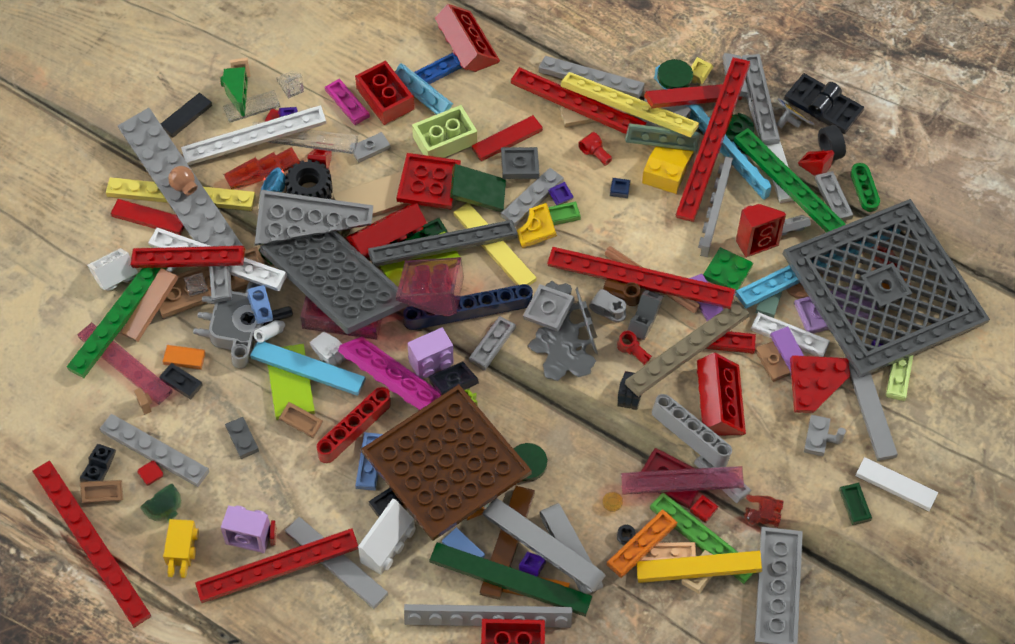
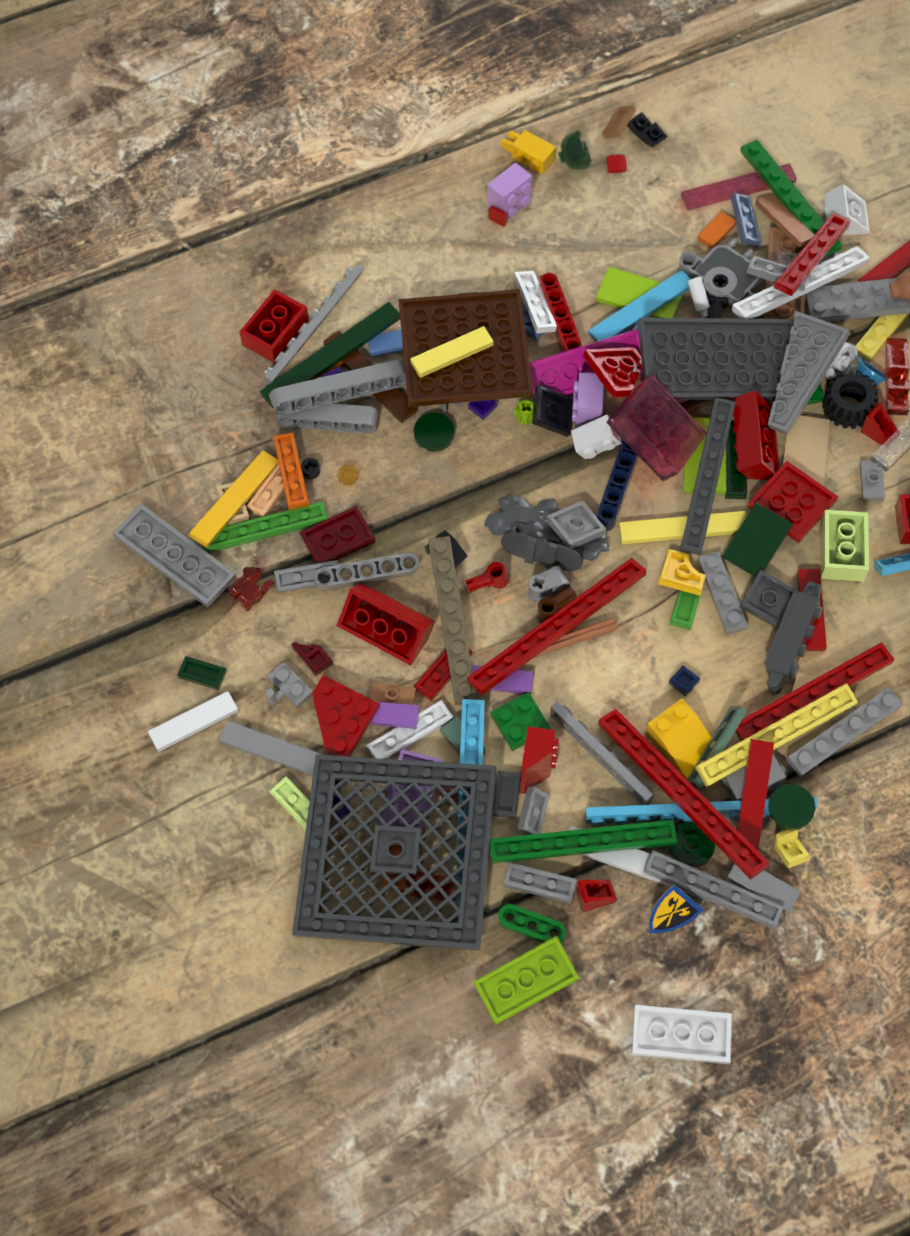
camera: 125 degrees right, 5 degrees up
(92, 544) = (578, 100): red plate -> none
(143, 400) = (688, 180): medium nougat plate -> none
(154, 450) = (635, 173): light grey plate -> none
(161, 339) = (745, 220): none -> sand blue tile
(181, 381) = (691, 215): black plate -> none
(242, 437) = (606, 237): dark grey plate -> none
(260, 304) = (724, 288): medium blue leg -> none
(276, 565) = (463, 205): red plate -> none
(301, 420) = (592, 282): medium nougat tile -> none
(340, 566) = (441, 249): light grey tile -> none
(351, 450) = (535, 302): none -> white plate
(386, 537) = (429, 275): white slope -> none
(398, 335) = (615, 368): none -> red plate
(461, 333) = (595, 438): none -> white brick
(462, 461) = (451, 352): none -> light yellow tile
(492, 343) = (575, 469): light grey tile -> none
(542, 133) = (792, 636): none -> dark grey hinge
(560, 193) = (708, 617): dark purple tile -> none
(593, 145) = (752, 681): red pin -> none
(645, 314) = (519, 614): dark grey brick -> none
(682, 480) = (321, 532): clear pink plate -> none
(704, 509) = (289, 544): red tile -> none
(775, 252) = (506, 794): none -> dark grey tile
(783, 433) = (313, 657): none -> dark red tile
(824, 102) = (669, 958): black plate -> none
(832, 139) = (604, 919): black tyre -> none
(865, 75) = (682, 1034): none -> white plate
(903, 170) = (526, 980): none -> lime tile

